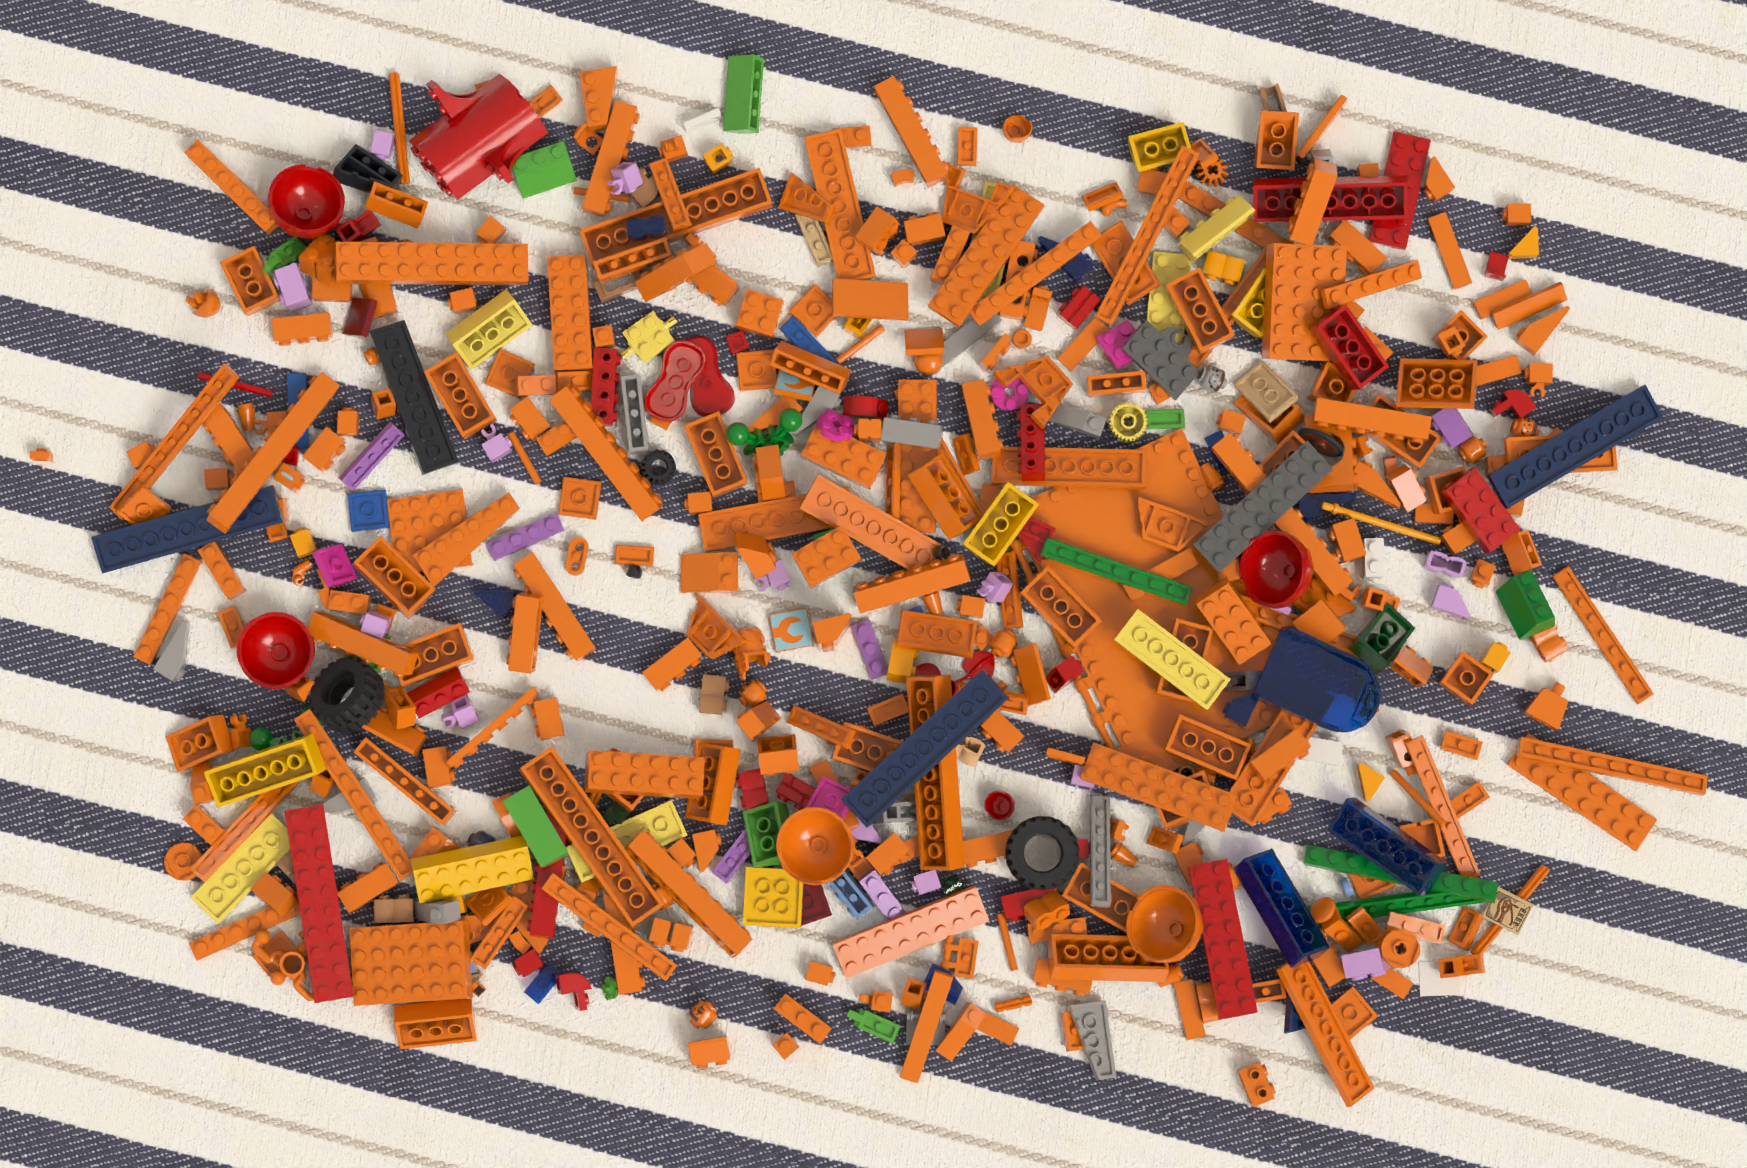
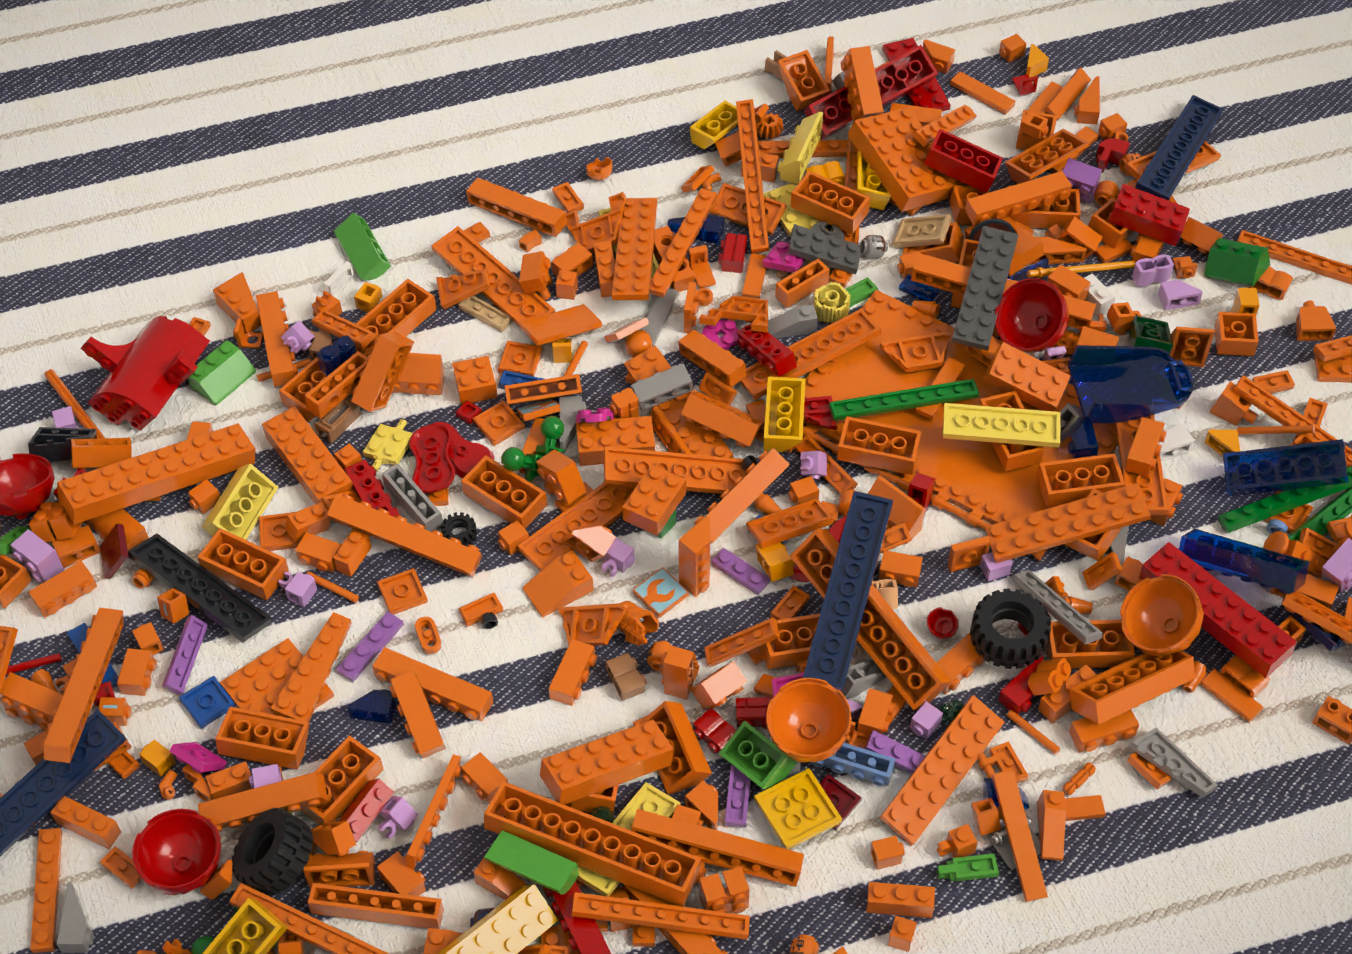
camera: 30 degrees left, 30 degrees down
(865, 407) = (602, 395): red brick -> none

